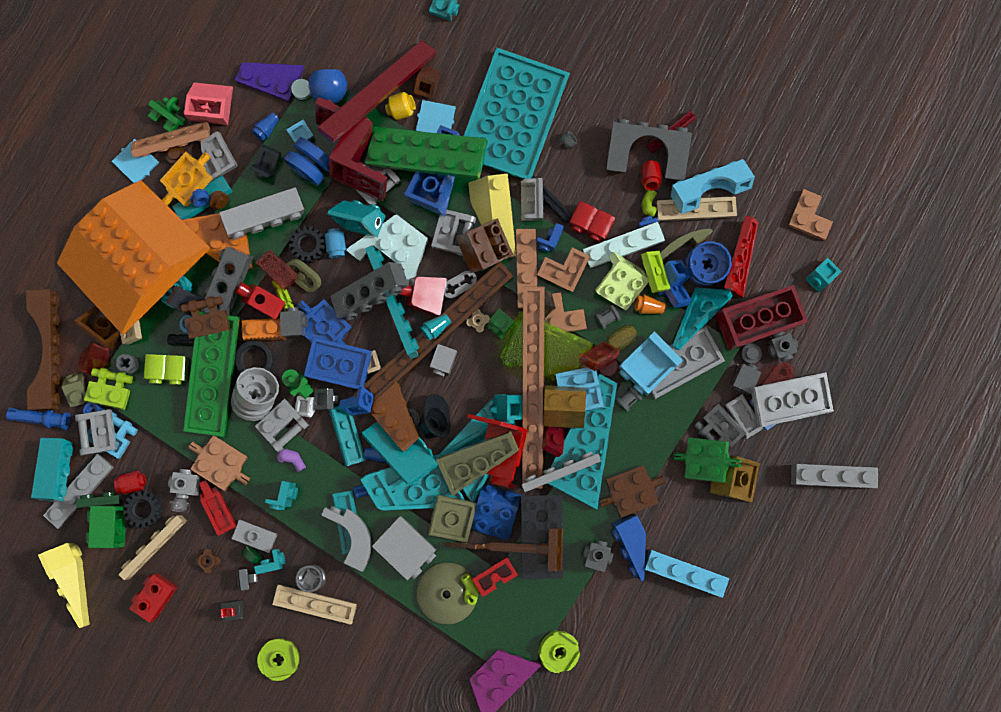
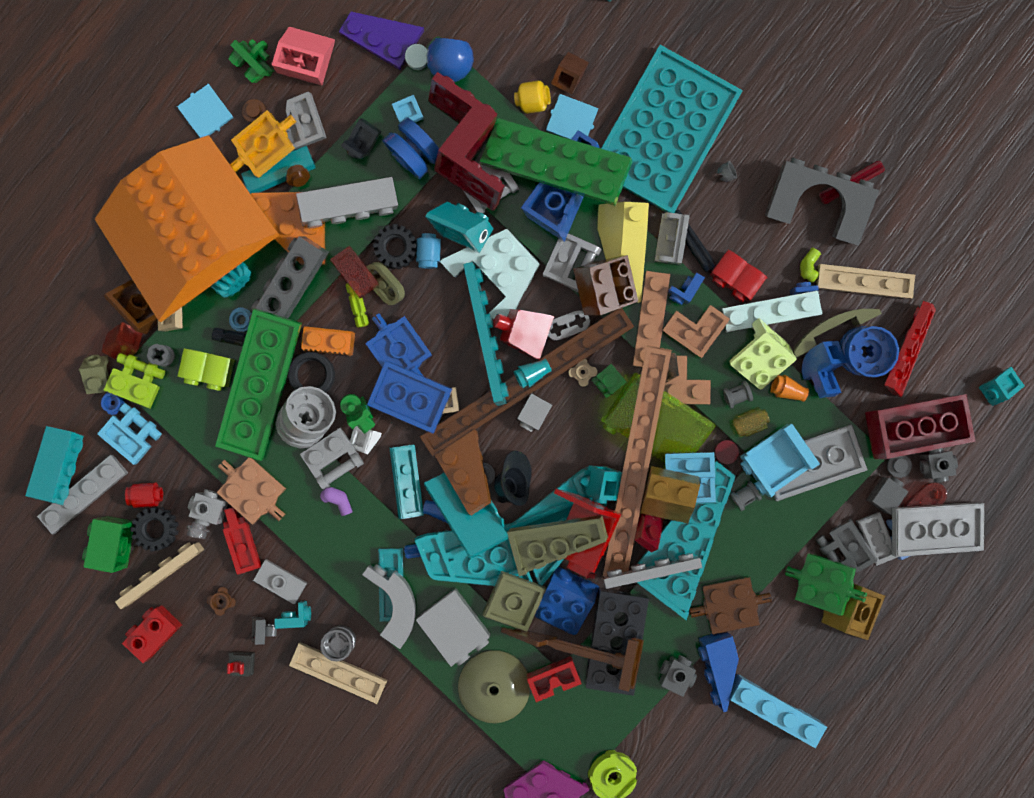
camera: 10 degrees right, 5 degrees up
(43, 391) = (70, 272): reddish brown arch -> none
(48, 418) = (58, 403): blue pin -> none
(67, 569) = (55, 585): light yellow wedge -> none
(102, 432) = (119, 430): light grey plate -> none
(105, 499) = (92, 510): dark green plate -> none
(170, 139) = (251, 92): nougat plate -> none
(182, 296) = (240, 293): black slope -> none
(200, 197) = (276, 170): blue plate -> none
(205, 324) = (261, 326): reddish brown plate -> none
(251, 554) = (273, 603): dark green tile -> none
(265, 127) = (366, 95): blue cone -> none
(265, 303) = (329, 306): red torso -> none
(272, 669) = (296, 718): lime plate -> none
(286, 494) = (326, 541): teal bracket -> none
(293, 322) = (364, 339): dark grey brick -> none
(324, 399) = (386, 436): dark grey tile -> none
(358, 405) = (426, 450): blue bracket -> none
(369, 290) = (490, 304): dark grey brick -> none
(376, 91) = (508, 76): dark red tile -> none
(471, 590) = (523, 690): lime arm -> none
(599, 356) = (721, 441): clear red plate -> none
(651, 175) = (819, 232): red brick -> none
(655, 271) = (805, 351): lime plate -> none
(702, 308) = (847, 407): teal wing -> none
(733, 177) = (917, 252): medium azure arch -> none
(806, 220) = (992, 315): nougat plate -> none
(834, 476) = (971, 627): light grey brick -> none

